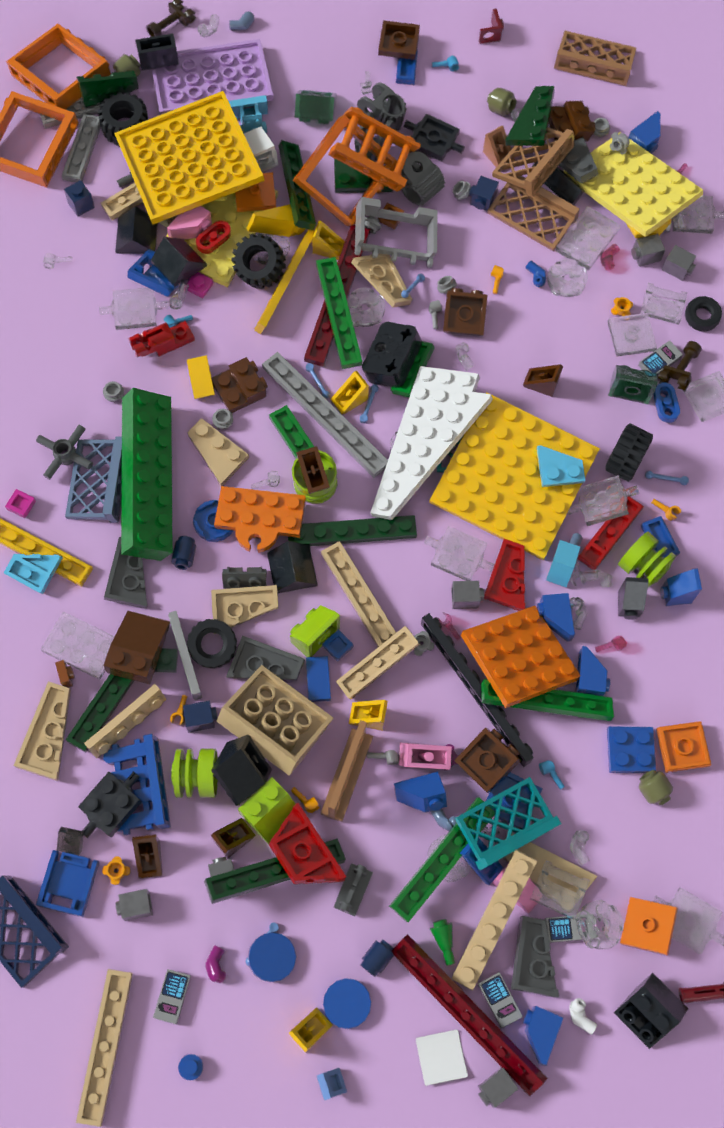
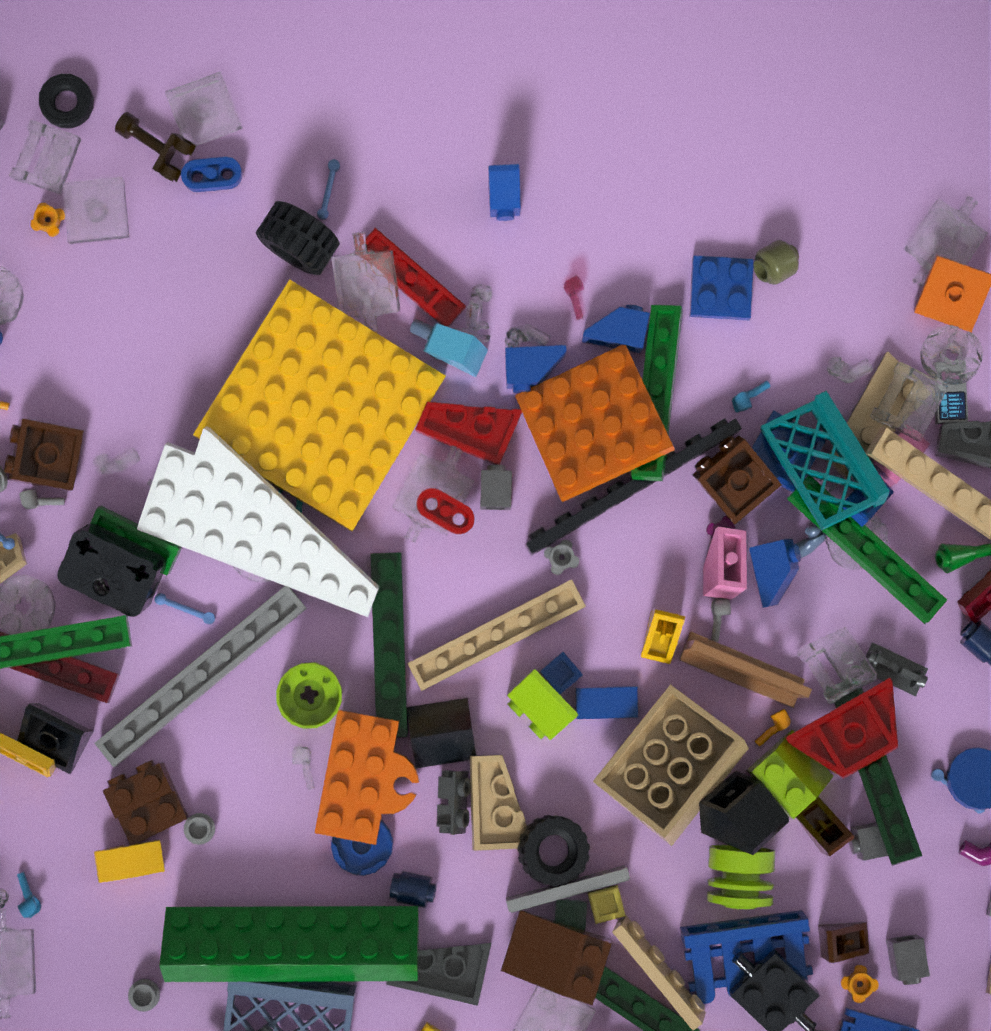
camera: 90 degrees left, 15 degrees up
(161, 339) = (61, 920): red plate -> none
(174, 685) = (606, 904): none -> light yellow tile
(179, 711) = (644, 896): light orange hand -> none
(199, 716) = (656, 869): dark blue brick -> none
(217, 450) = (251, 837): tan wing -> none
(253, 654) = (573, 787): dark grey wing -> none
(281, 329) = (53, 736): none -> black slope
(290, 430) = (233, 723): green plate -> none
(310, 368) = (120, 694): medium blue hinge -> none
(312, 470) = (313, 697): reddish brown slope -> none
(351, 393) = (172, 636): yellow slope -> none
(357, 849) = (846, 660): none -> clear plate
(378, 662) = (593, 618): tan plate -> none
(447, 558) = (445, 510): none -> red plate
(447, 623) = (535, 519): clear pink hand -> none
(543, 379) = (163, 348): reddish brown slope -> none
(559, 468) = (320, 341): medium azure wing -> none
(632, 597) = (516, 261): slope -> none
(633, 384) = (180, 218): slope -> none
(646, 559) = (467, 229): lime wheel -> none
(660, 531) = (422, 210): blue tile -> none
(664, 355) = (139, 174): tile -> none
(667, 510) = (380, 194): light orange hand -> none
(683, 747) = (721, 218): orange plate -> none

